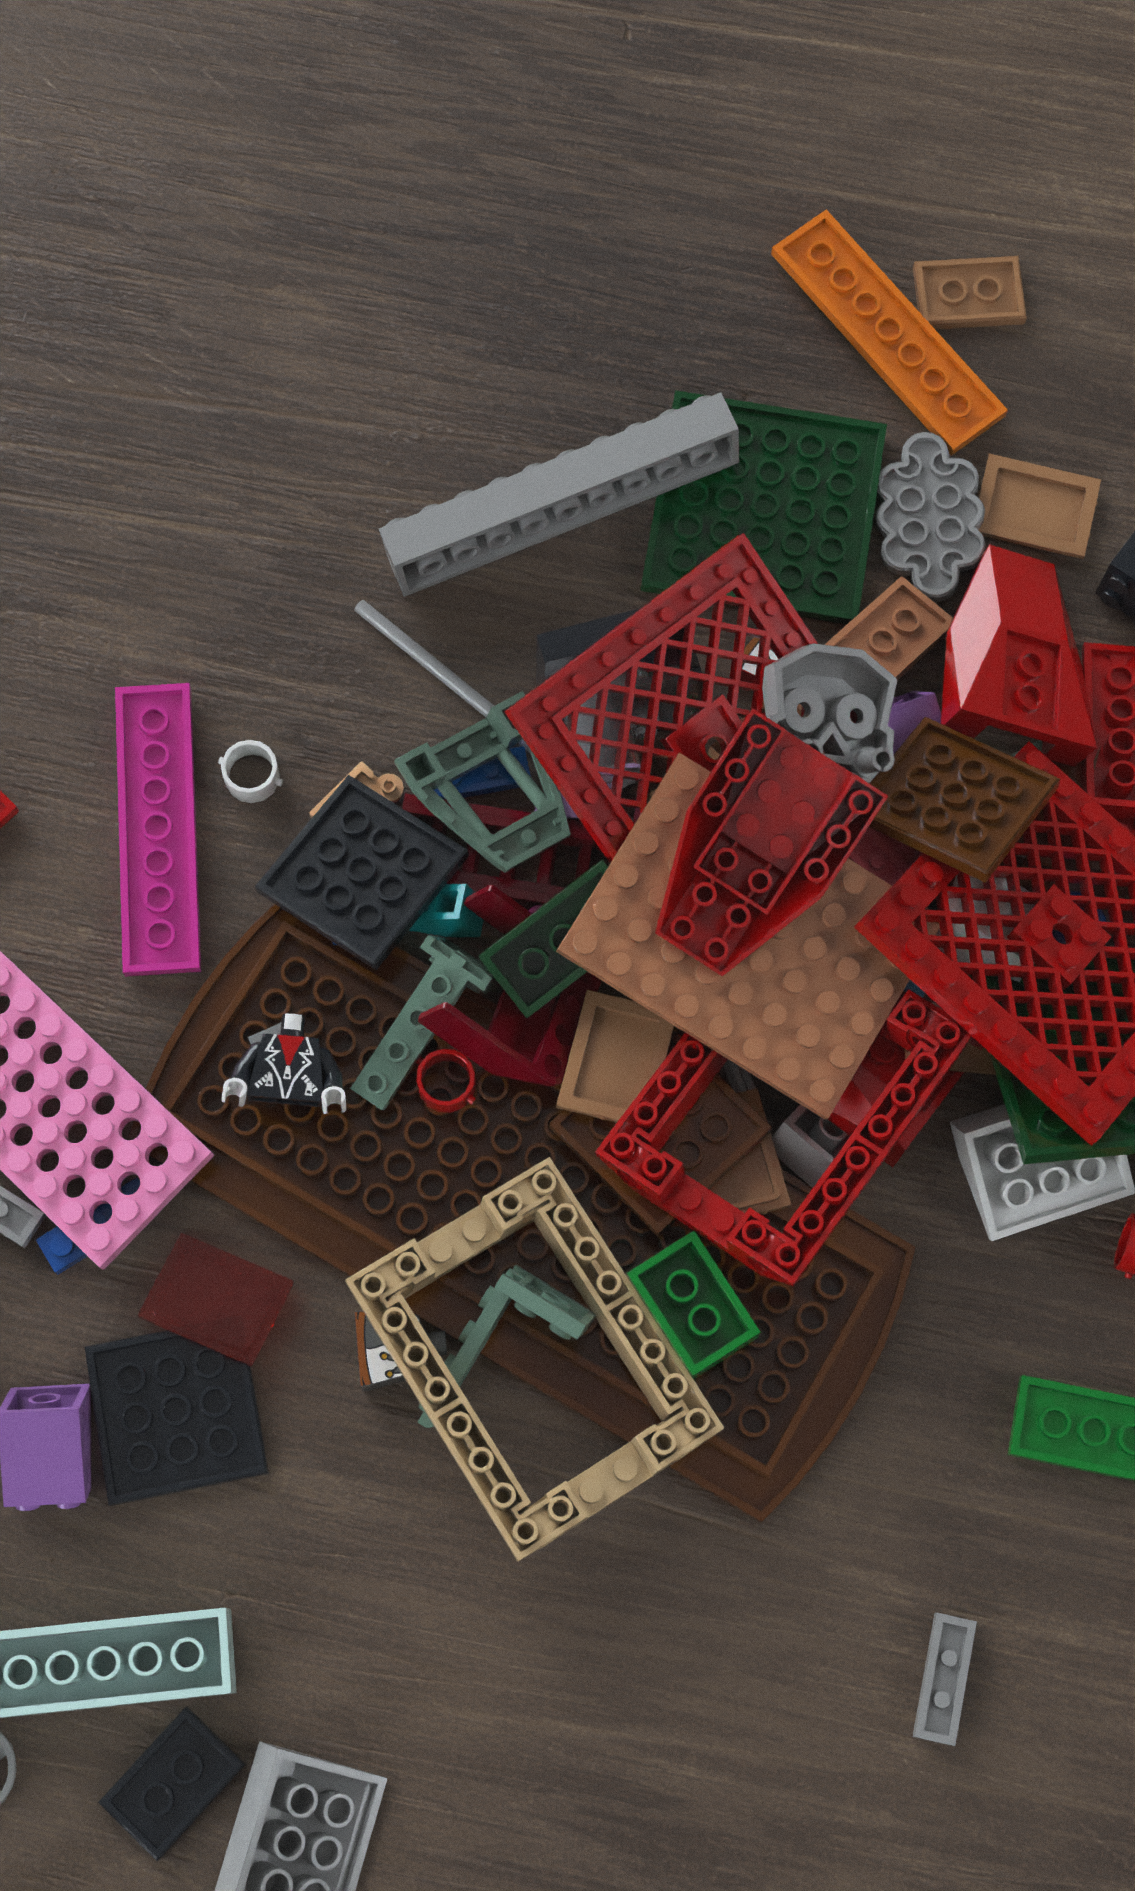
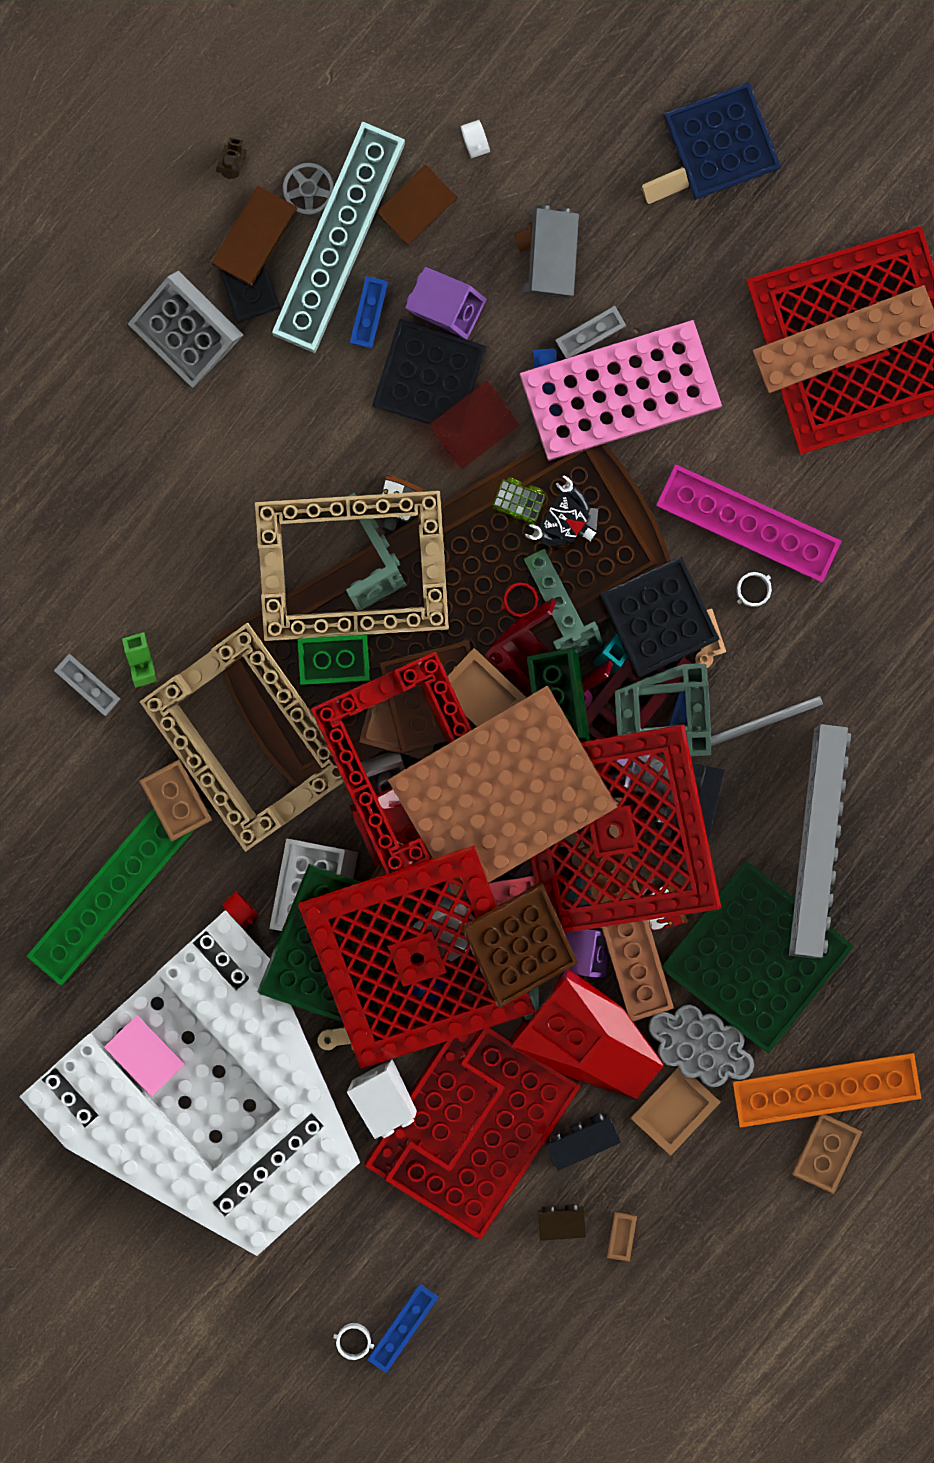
camera: 120 degrees right, 15 degrees up
(88, 1815) = (254, 235): none -> reddish brown tile
(121, 1558) = (369, 312): none -> blue plate
(298, 1157) = (518, 500): none -> brick
(760, 843) = (542, 820): red wedge -> none
(829, 686) = (613, 910): light grey brick -> none
(858, 1617) = (139, 659): none -> bright green slope
(964, 1417) = (203, 765): none -> tan slope
(1039, 1436) = (175, 800): none -> medium nougat tile

